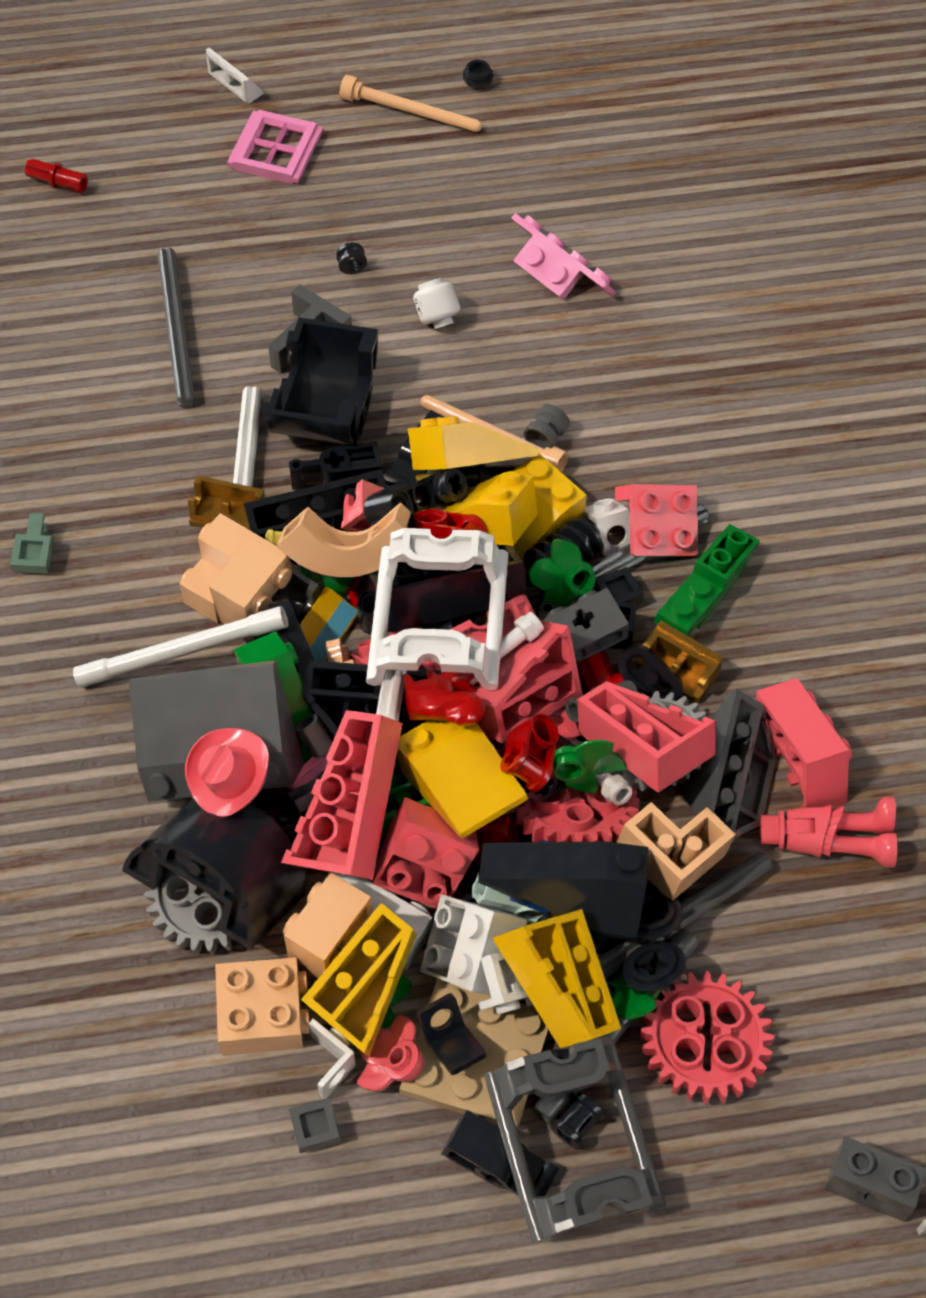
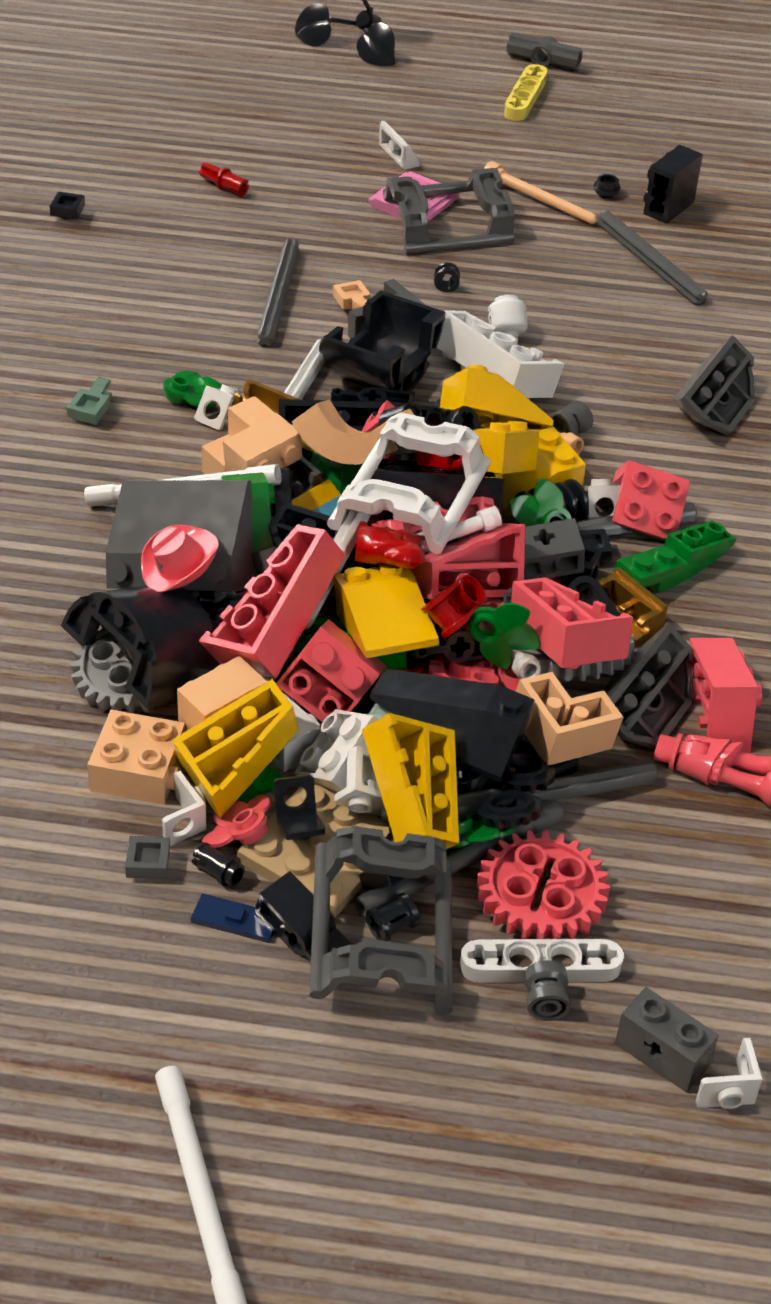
camera: 15 degrees right, 15 degrees down
(133, 494) = (188, 387): none -> green plate
(172, 499) = (223, 397): none -> white bracket
(261, 314) = (351, 294): none -> light nougat plate
(289, 176) = (414, 210): none -> dark grey piece
(386, 1110) = (225, 868): none -> black pin
(418, 1165) = (231, 918): none -> dark blue piece
(443, 366) = (475, 343): none -> white wedge
(550, 61) = (672, 183): none -> black brick
(552, 265) = (623, 318): bright pink bracket -> none
(556, 166) = (652, 258): none -> dark grey axle
(683, 342) = (720, 388): none -> dark grey wedge
(733, 1127) = (537, 951): none -> white beam
(749, 1157) = (547, 990): none -> dark grey wheel

